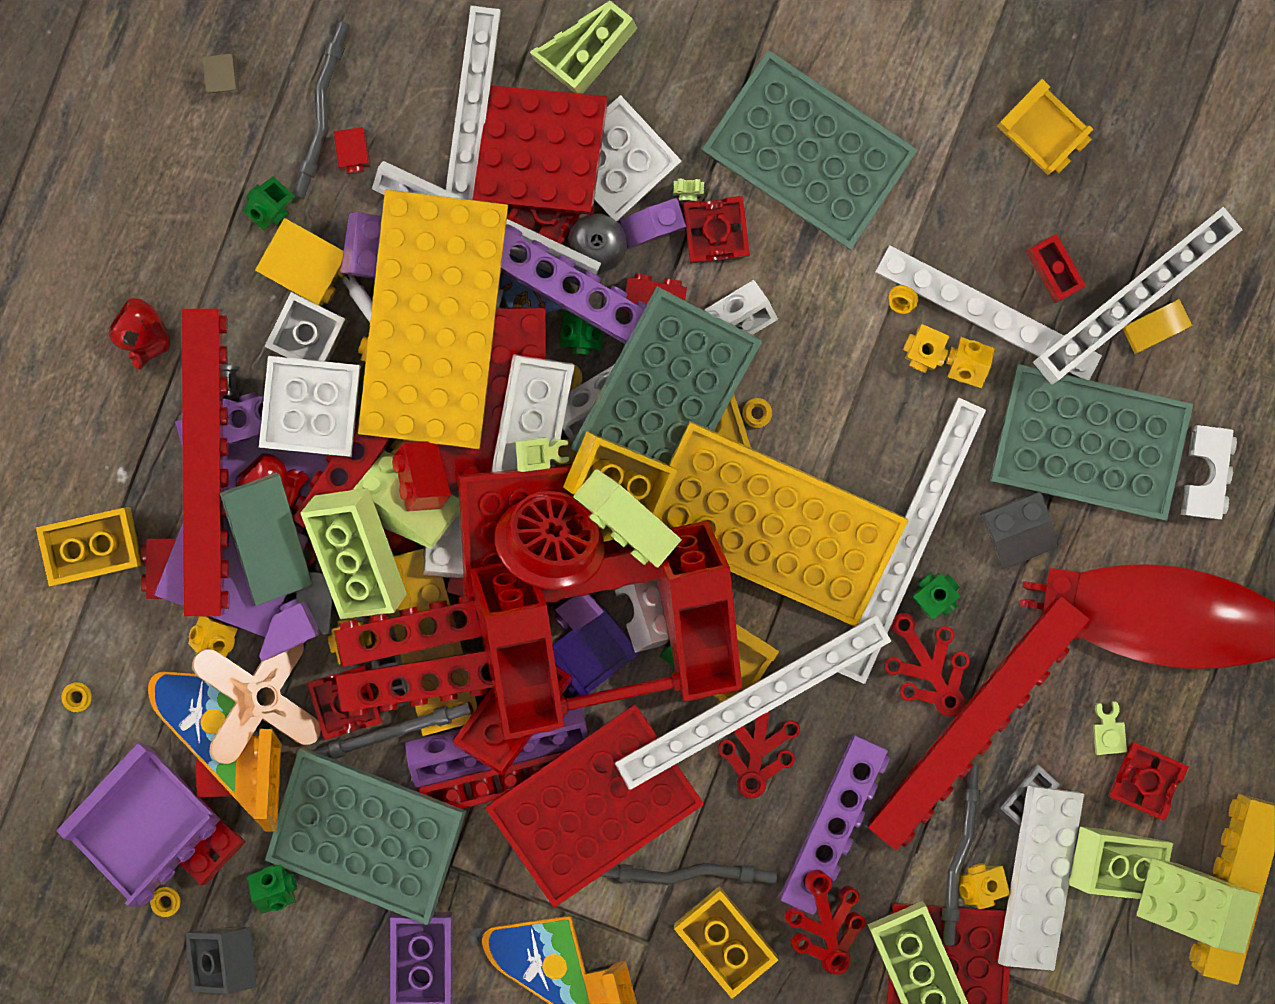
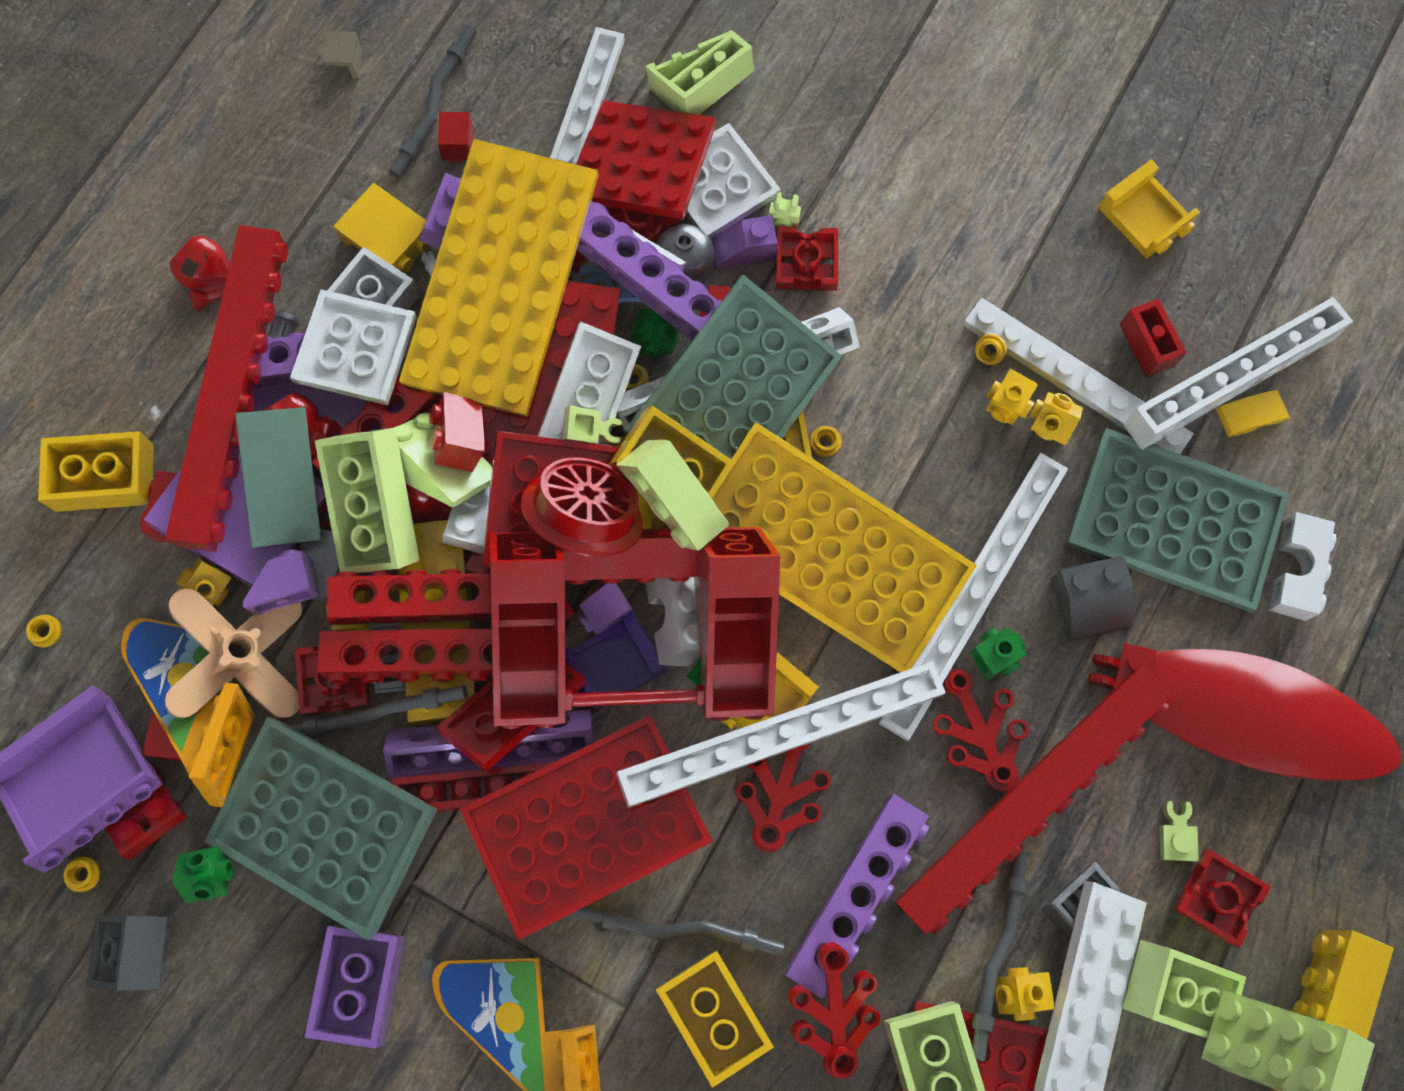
camera: 10 degrees right, 15 degrees down
(268, 203) = (360, 168): green brick -> none
(809, 150) = (910, 200): sand green plate -> none

